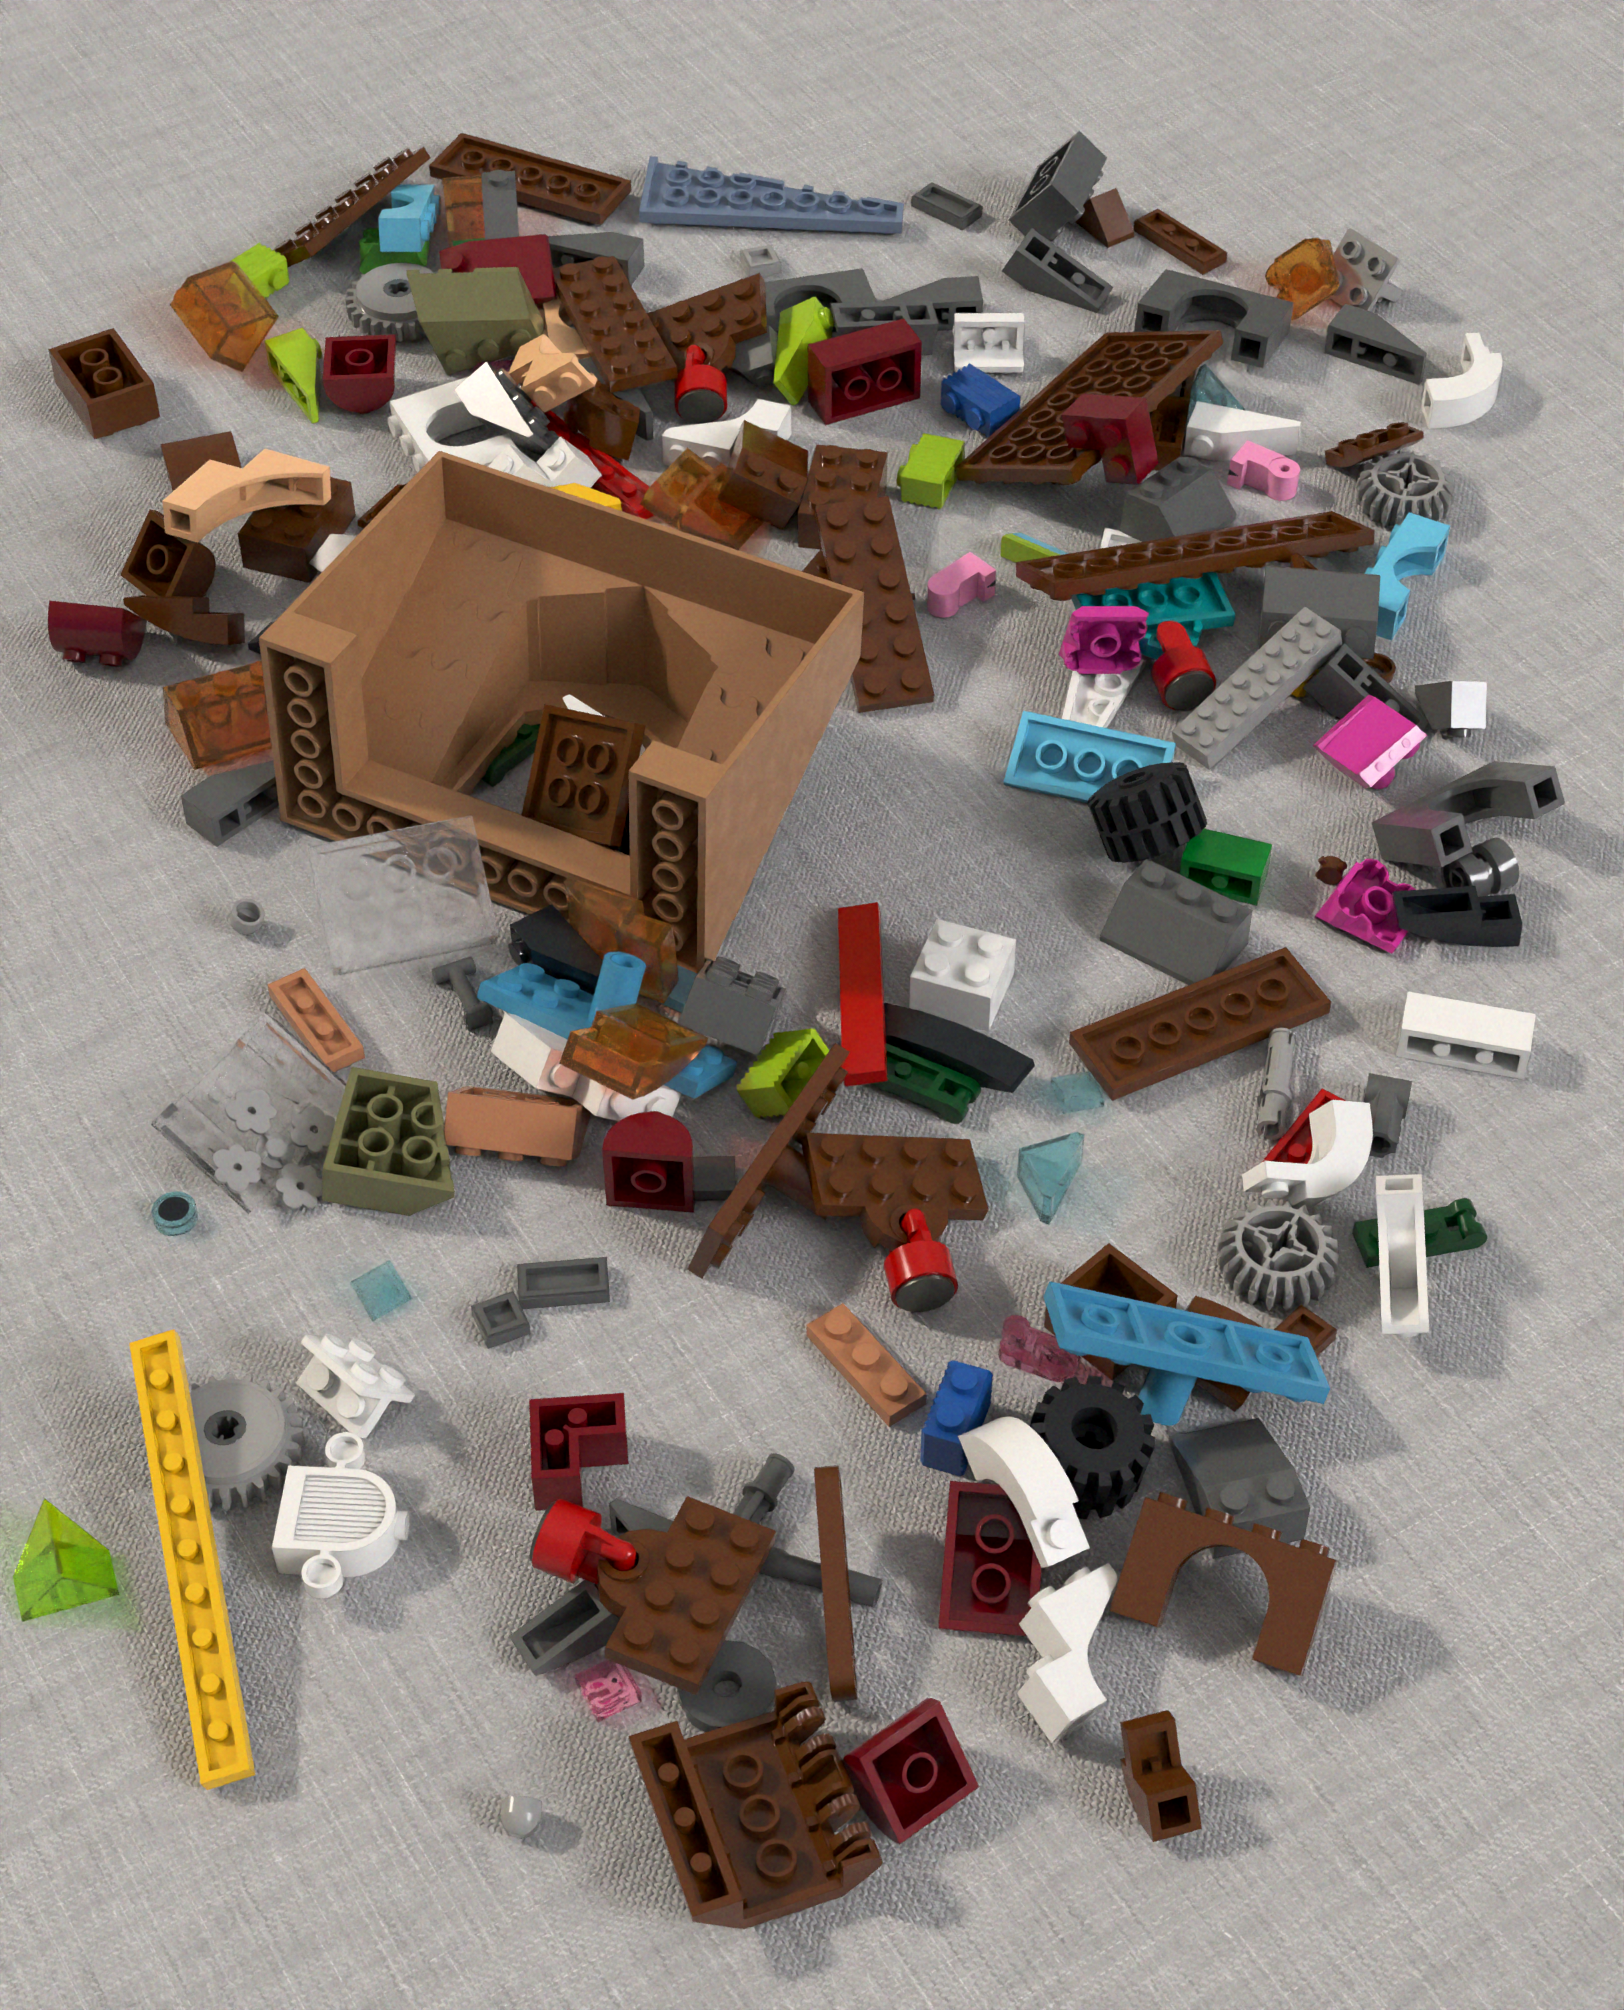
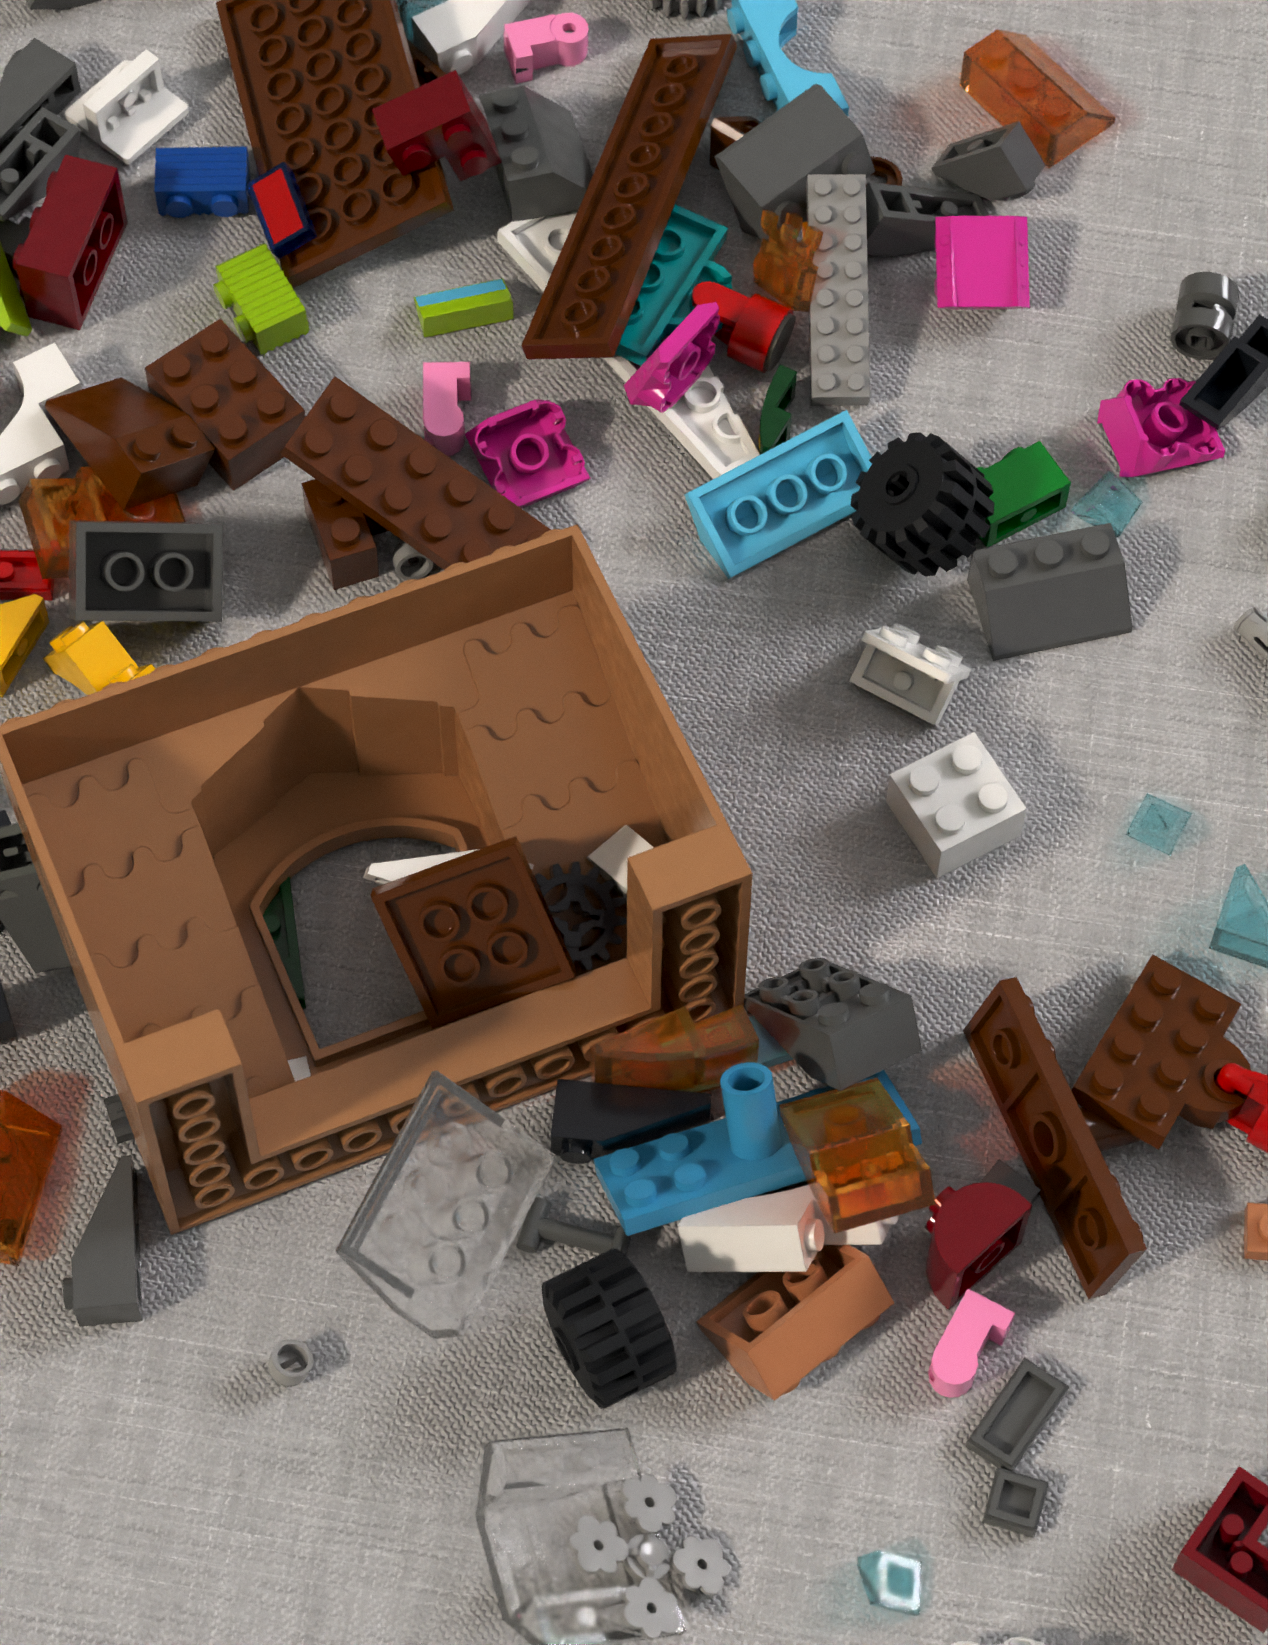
camera: 50 degrees left, 15 degrees up
(316, 1020) = (494, 1398): nougat plate -> none
(388, 1145) = (734, 1448): olive wedge -> none
(402, 1022) = (609, 1328): none -> black wheel
(582, 1219) = (961, 1344): none -> bright pink leg
(676, 502) = (145, 571): none -> dark grey brick
(782, 1071) = (953, 1049): lime brick -> none
(862, 994) = (900, 900): red tile -> none
(925, 1082) = (1040, 940): dark green plate -> none
(956, 1047) = (1030, 884): black slope -> none
(972, 638) = (528, 453): none -> dark pink slope
(994, 433) = (281, 210): none -> tile
(1034, 893) = (909, 672): none -> white bracket
(1146, 718) = (775, 420): none -> dark green slope
(1198, 1023) = (1175, 668): reddish brown plate -> none
(1238, 651) = (783, 264): none -> clear orange plate
(1282, 920) = (1108, 503): none -> clear light blue slope
(1330, 869) = (1087, 419): reddish brown piece -> none
(1434, 827) = (1121, 229): dark grey arch -> none
(1537, 695) = (1025, 85): none -> clear orange slope

